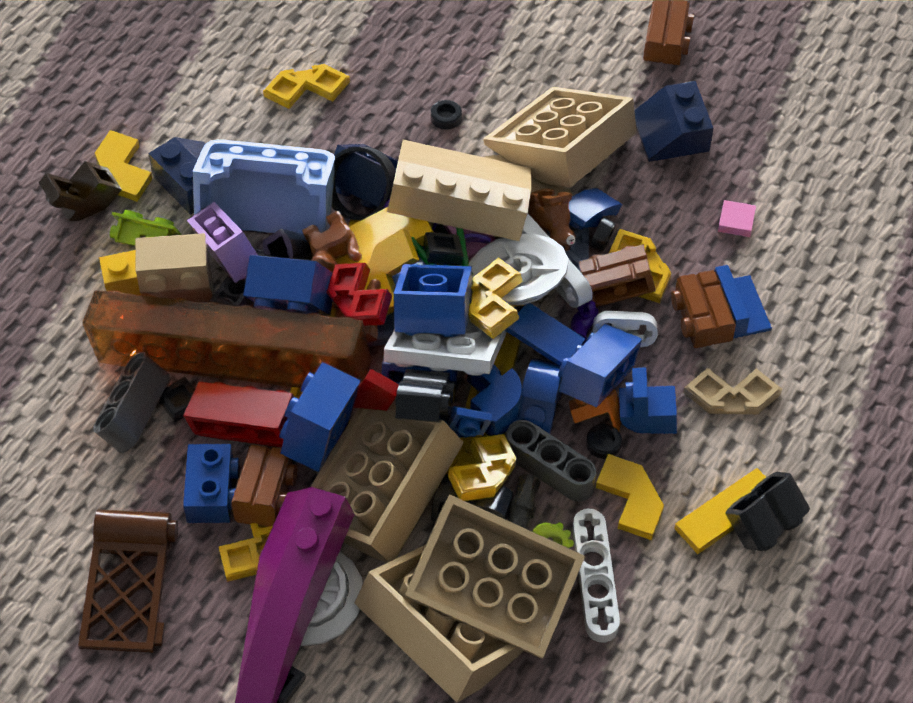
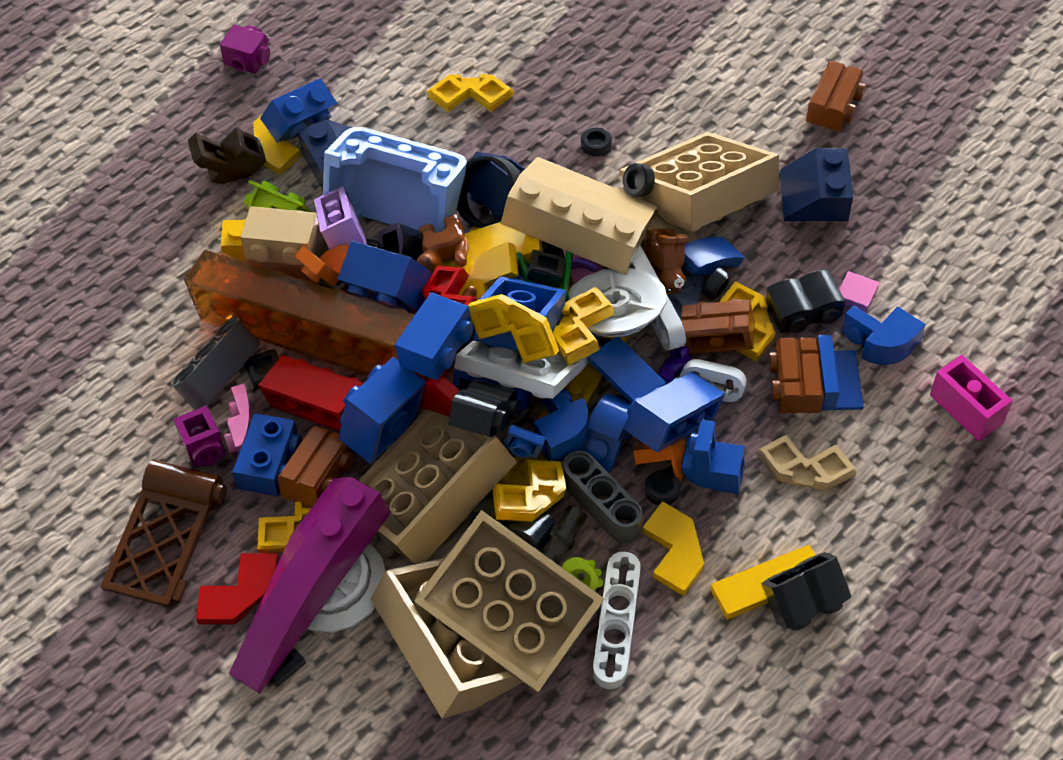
camera: 15 degrees right, 0 degrees up
(65, 78) = (245, 48): none -> magenta brick
(138, 478) = (200, 437): none -> magenta brick
(142, 133) = (298, 110): none -> blue brick
(172, 457) = (240, 419): none -> bright pink slope
(216, 635) = (230, 603): none -> red tile
(228, 283) = (326, 266): none -> orange plate
(361, 334) = (434, 336): none -> blue brick
(450, 309) = (529, 329): none -> yellow tile
(507, 145) = (638, 179): none -> black tile
(691, 236) = (805, 301): none -> black brick
(774, 261) = (885, 341): none -> blue brick
(871, 300) = (970, 397): none -> dark pink brick

